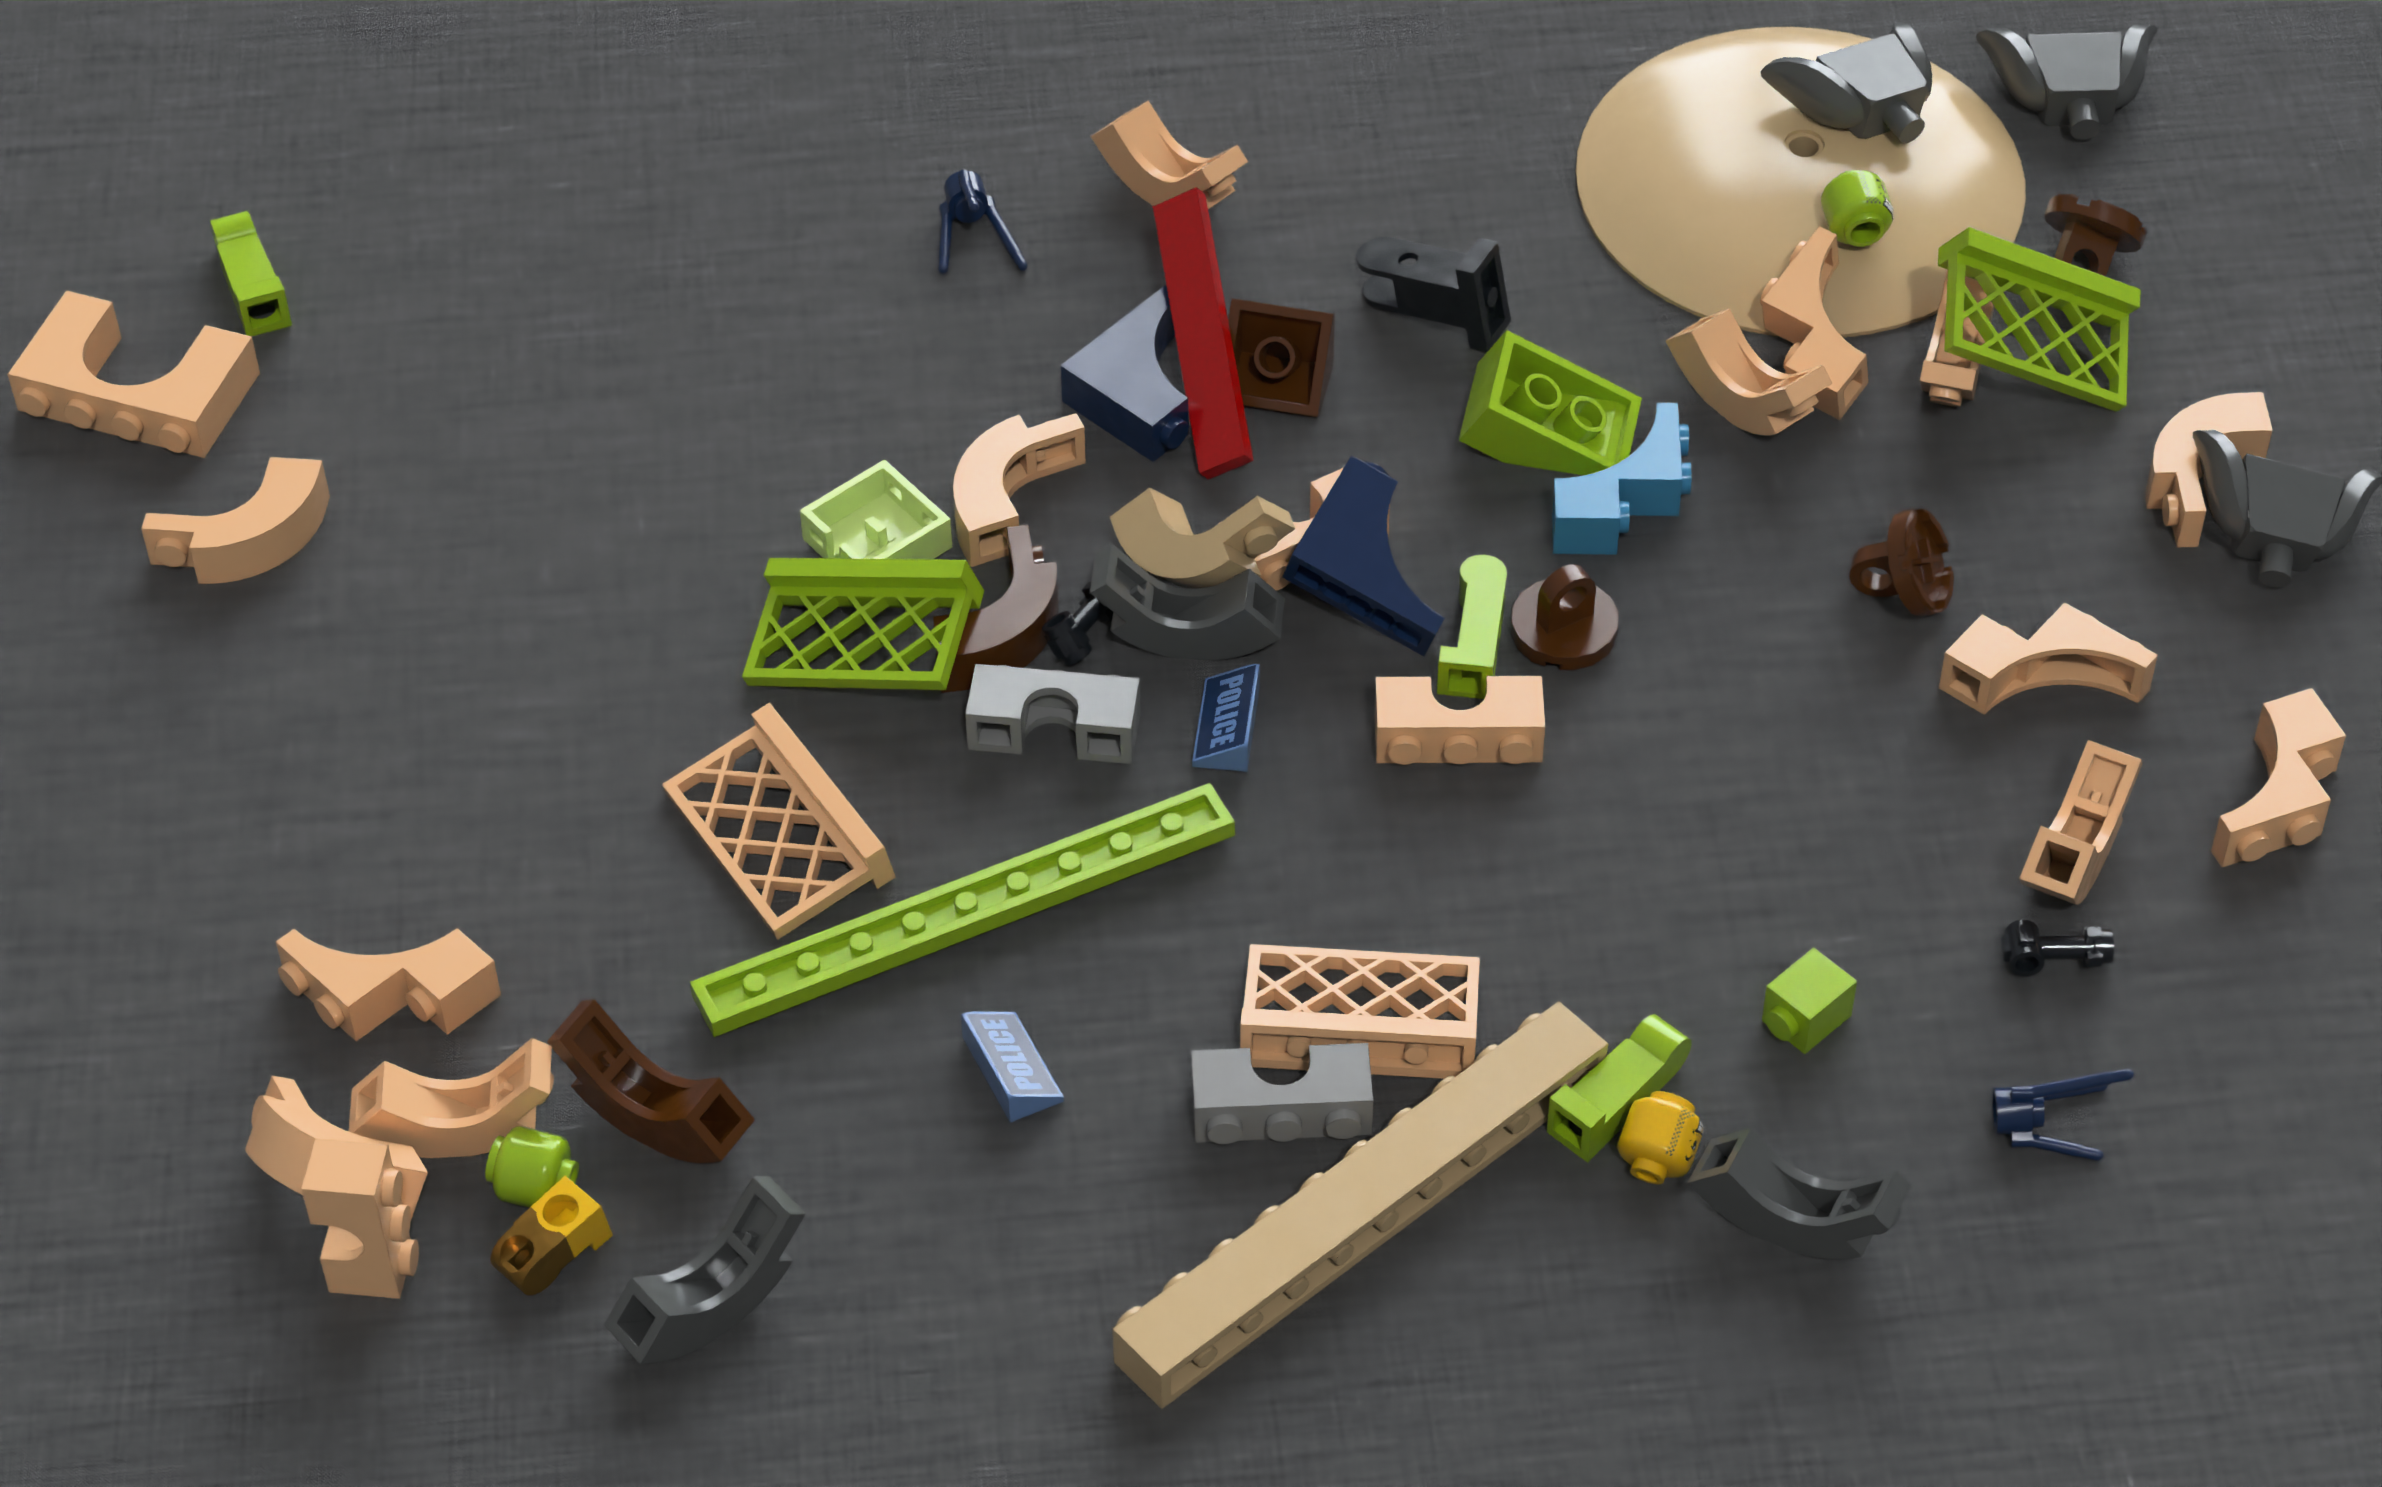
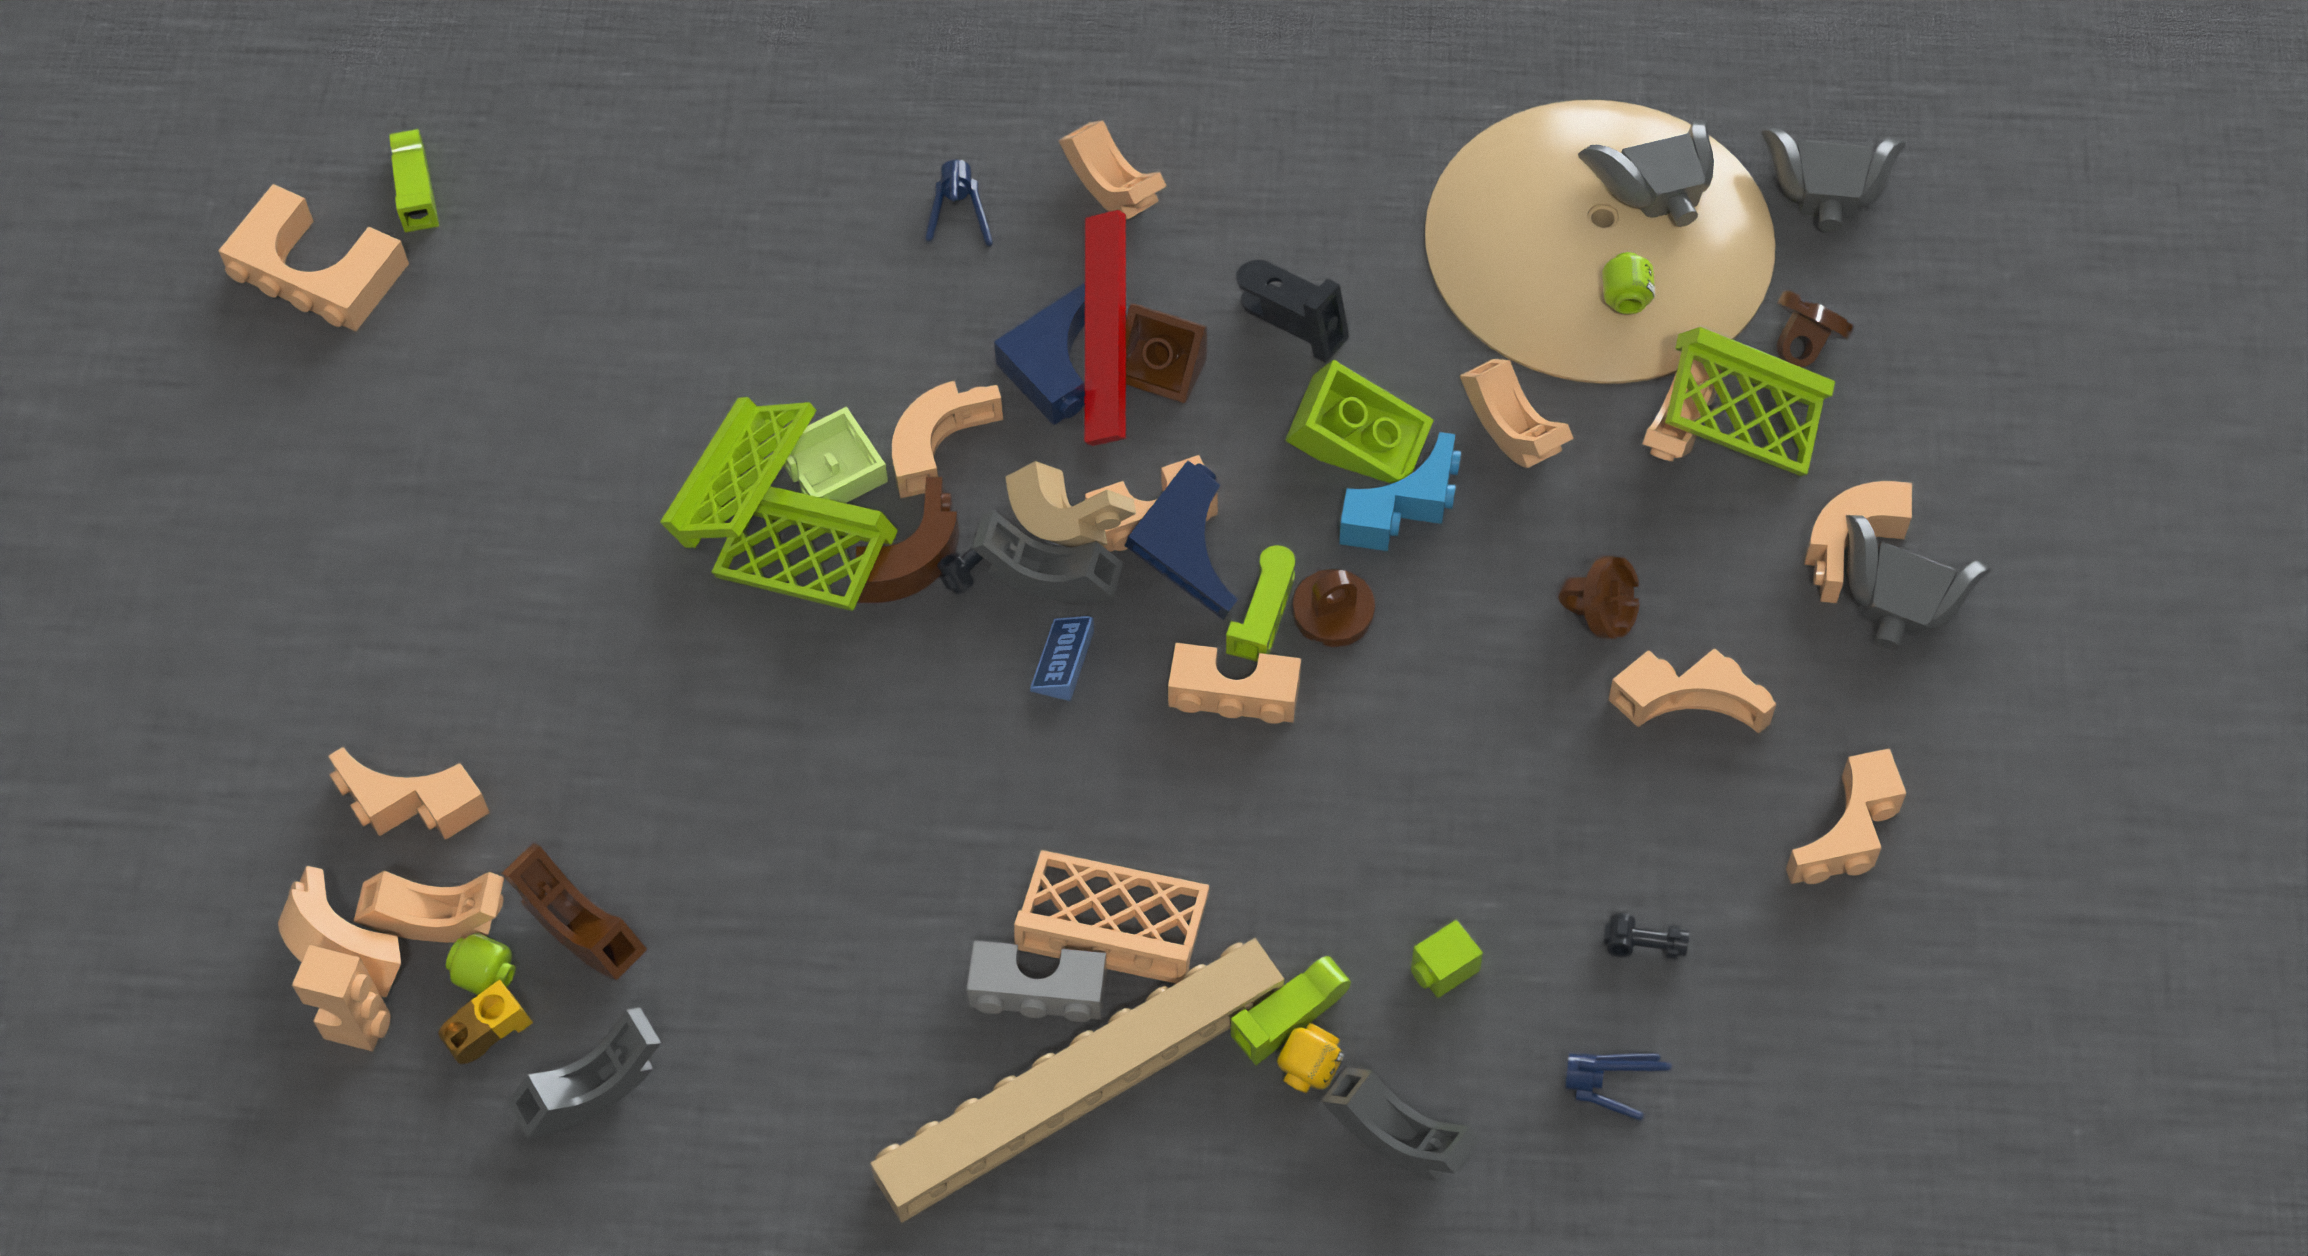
camera: 10 degrees right, 10 degrees up
(251, 537) = (378, 407): light nougat arch -> none
(755, 548) = (718, 477): none -> lime fence
(822, 805) = (748, 691): light nougat fence -> none
(961, 909) = (835, 791): lime plate -> none
(1010, 1063) = (846, 923): slope -> none
(1013, 701) = (902, 623): light grey arch -> none
(1796, 313) = (1566, 360): light nougat arch -> none
(2076, 845) = (1680, 854): light nougat arch -> none

